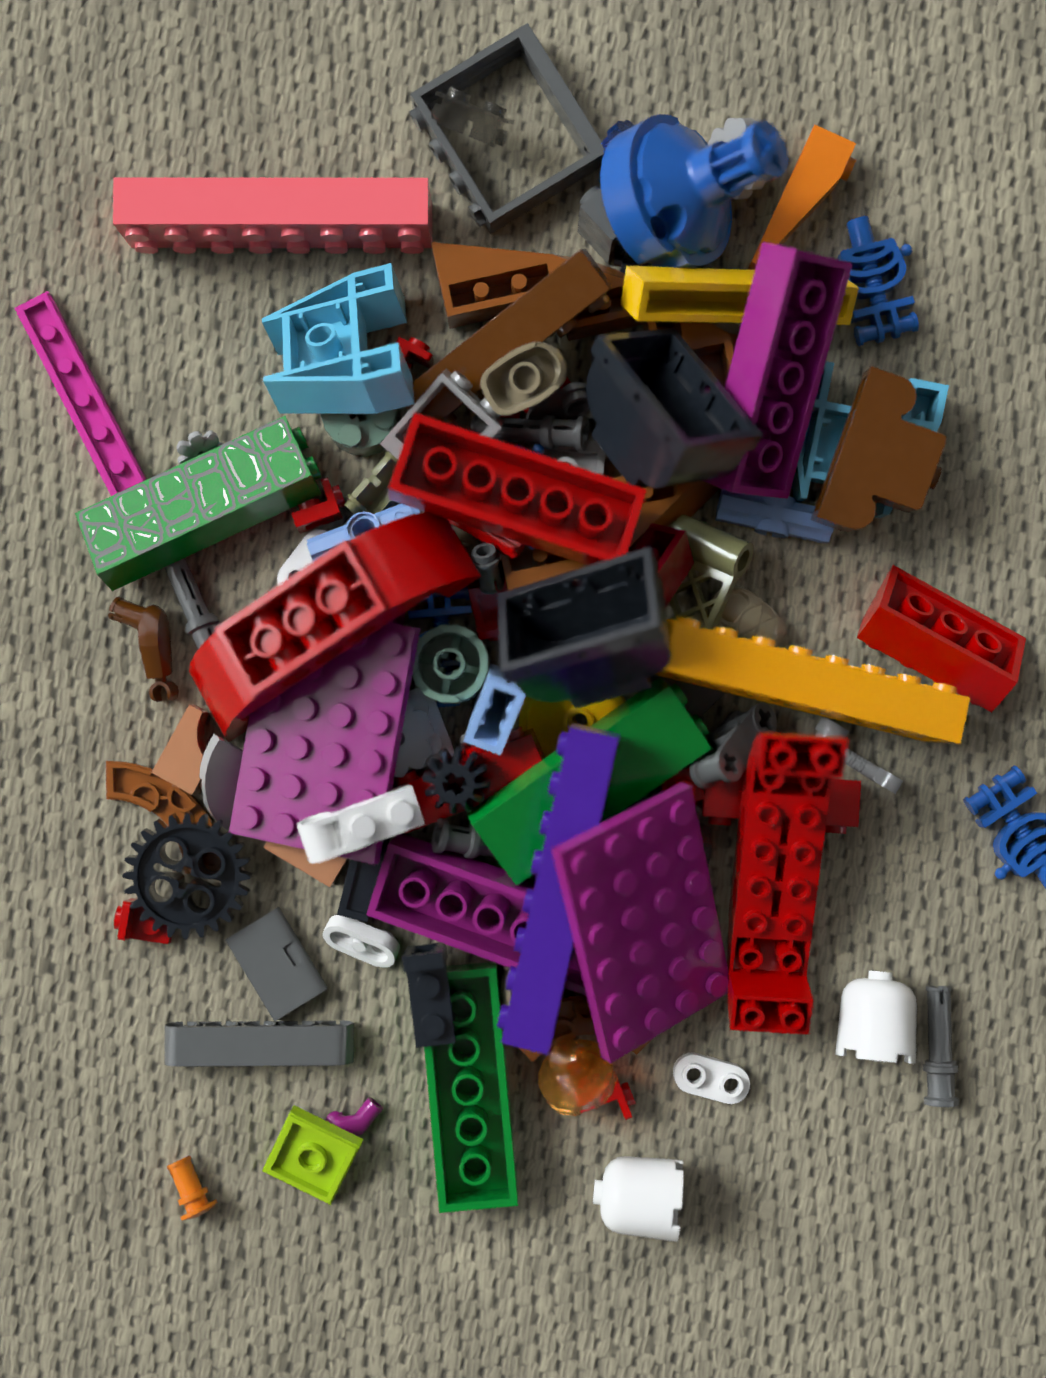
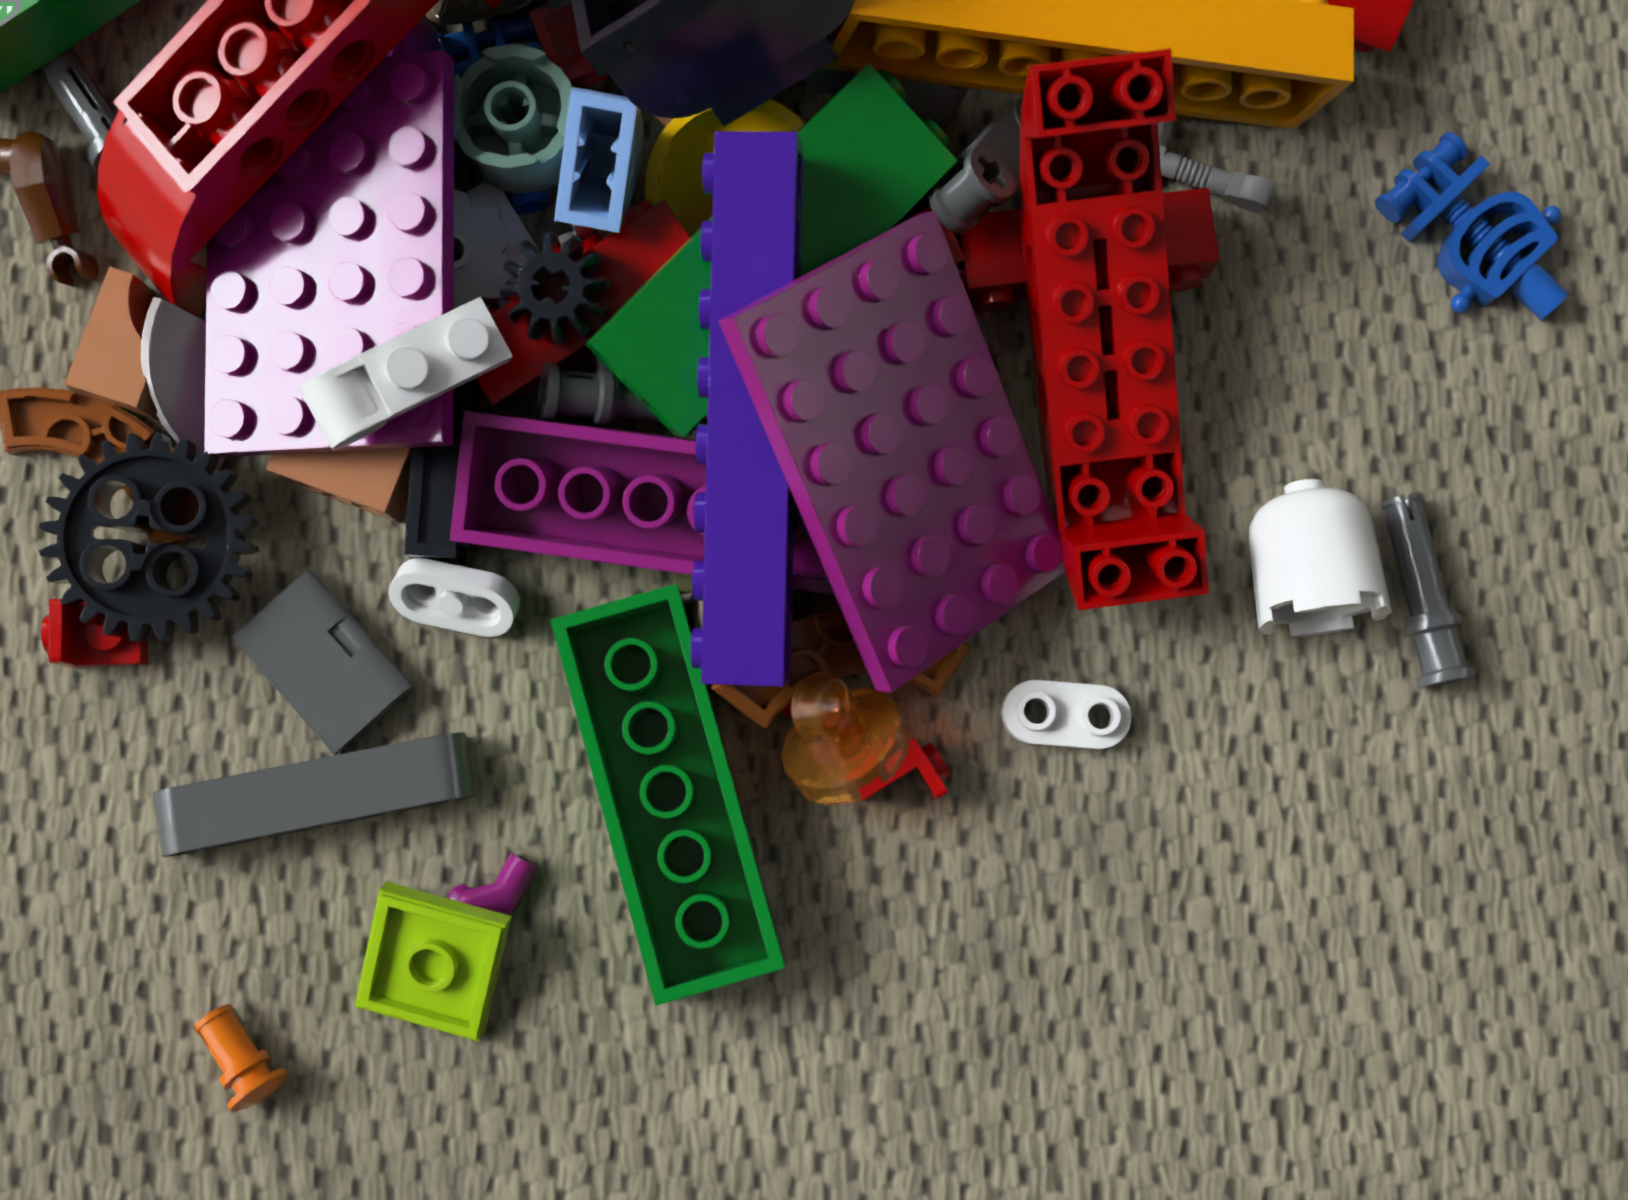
camera: 10 degrees left, 5 degrees down
(429, 994) = (573, 640): black bracket -> none
(641, 1197) = (989, 921): white cylinder -> none

